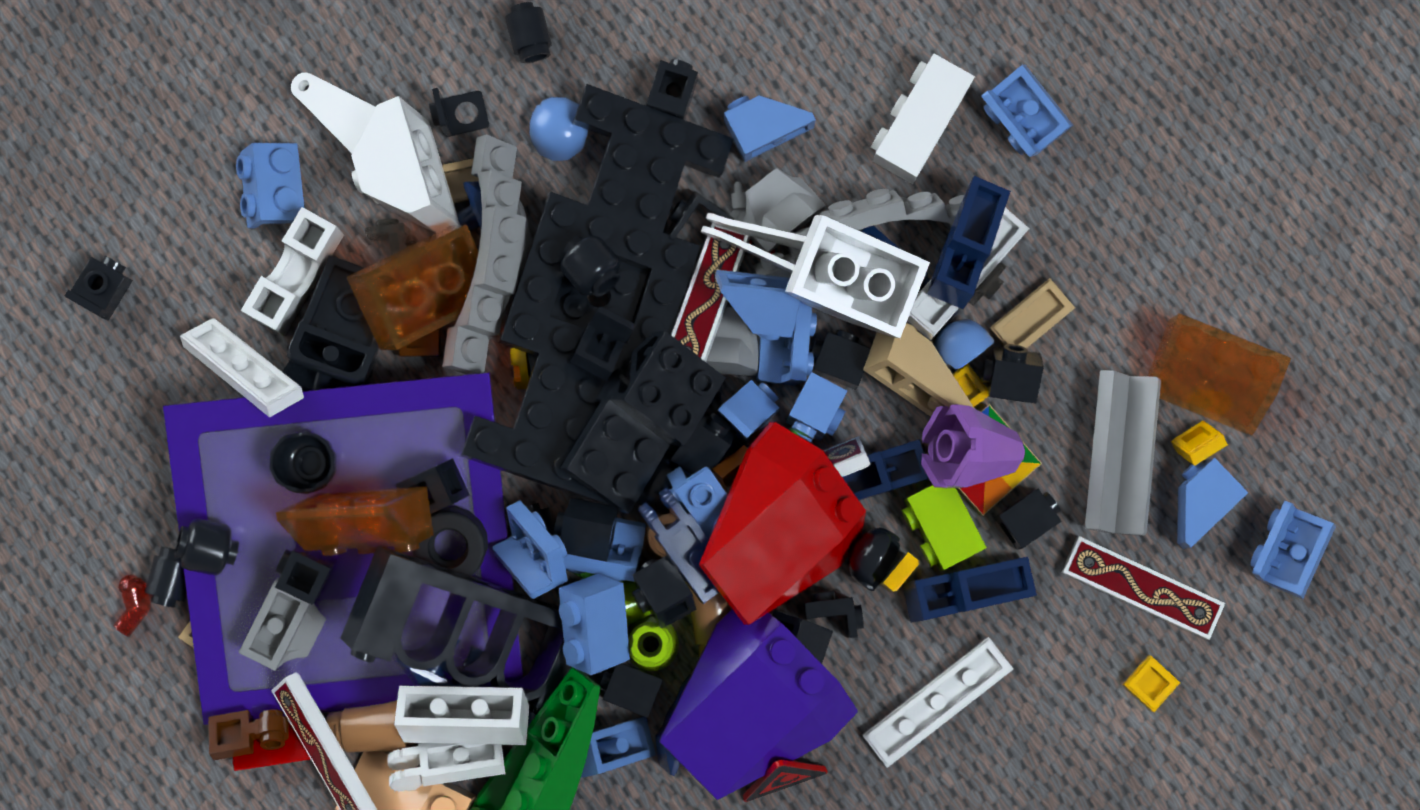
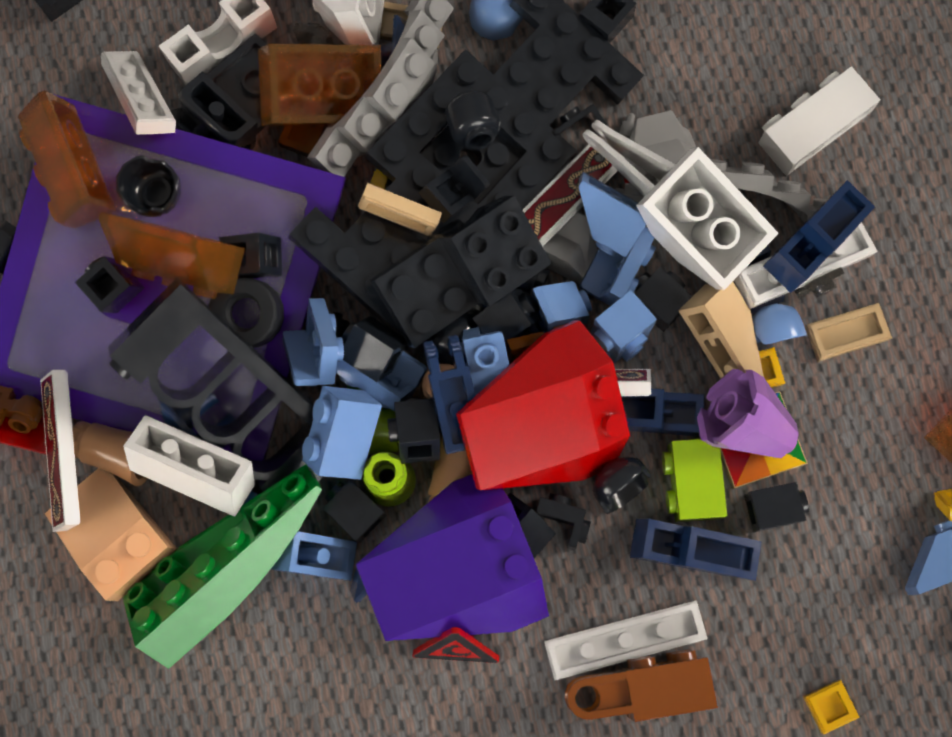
camera: 30 degrees right, 5 degrees down
(206, 547) = (34, 228): black head -> none
(208, 472) = (64, 161): none -> clear orange slope
(282, 630) = (71, 329): light grey slope -> none
(443, 764) = (156, 504): white hinge -> none
(559, 387) = (399, 210): none -> tan tile
(764, 124) = (677, 72): medium blue slope -> none
(900, 572) = (638, 507): yellow tile -> none
(975, 741) = (648, 688): none -> dark orange brick
(1013, 373) = (813, 371): black brick -> none
(1026, 112) = (915, 151): medium blue bracket -> none
(1122, 453) = (886, 484): light grey panel -> none
(1143, 588) = (858, 616): tile -> none

